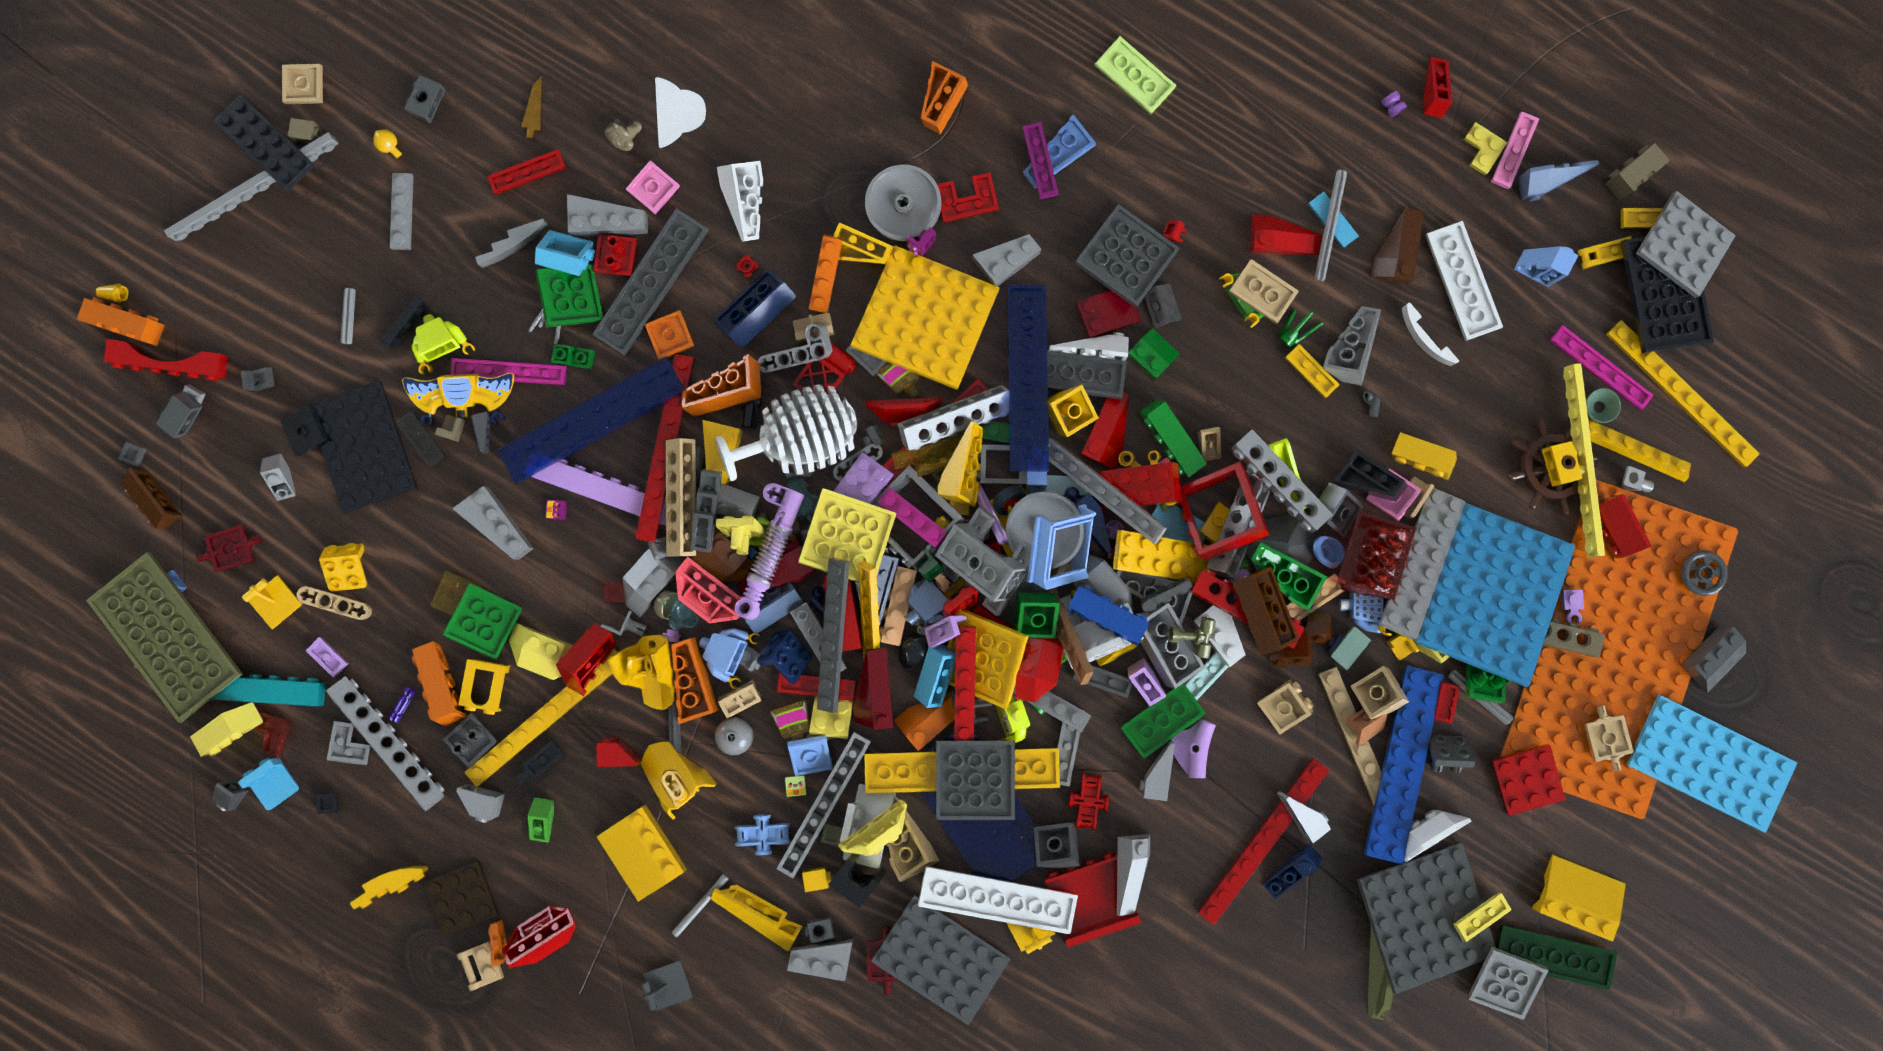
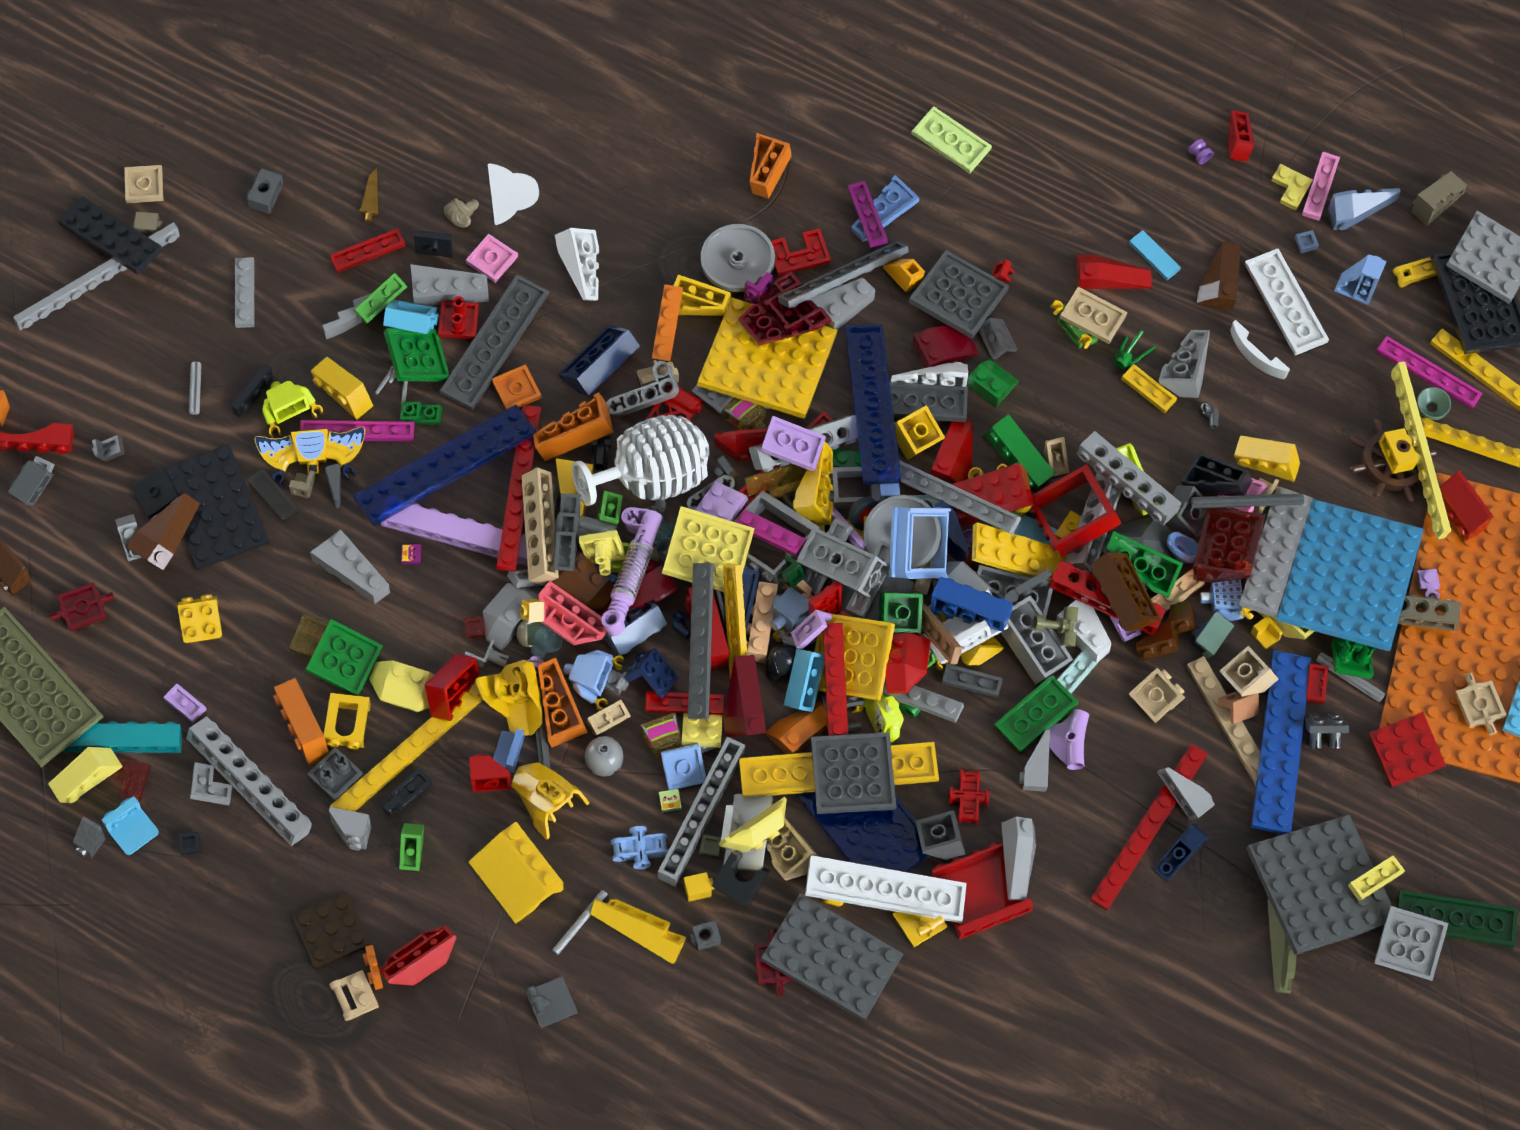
camera: 10 degrees left, 20 degrees down
(272, 600) = (128, 652): yellow plate -> none
(306, 481) = (162, 534): none -> reddish brown wedge
(333, 605) = (188, 656): tan beam -> none
(386, 142) = (228, 230): yellow piece -> none
(393, 881) = (262, 912): yellow slope -> none
(402, 704) = (262, 745): dark purple axle -> none
(492, 325) = (342, 387): none -> yellow wedge
(533, 232) = (380, 298): none -> bright green plate
(591, 170) = (433, 243): none -> black plate
(640, 724) = (509, 749): none -> medium blue panel
(668, 588) = (532, 610): none -> plate
(741, 266) = (586, 319): red plate -> none
(753, 479) = (609, 507): none -> bright green slope
(811, 629) = (676, 649): light grey brick -> none
(822, 960) = (709, 963): light grey wedge -> none
(941, 427) = (793, 443): none -> lavender plate
(944, 273) = (772, 321): none -> dark red wedge
(1009, 229) = (842, 274): none -> dark grey plate
(1067, 747) = (943, 746): light grey plate -> none
(1073, 227) = (905, 272): none -> light orange slope
(1146, 682) = (1016, 678): lavender slope -> none
(1330, 225) = (1152, 258): light grey axle -> none
(1400, 509) = (1247, 500): none -> dark grey axle
(1431, 830) = (1318, 802): white wedge -> none
(1492, 213) = (1306, 241): none -> sand blue plate
(1581, 898) = (1474, 861): yellow piece -> none
(1635, 480) = (1473, 467): light grey bracket -> none
(1639, 217) = (1445, 238): yellow plate -> none

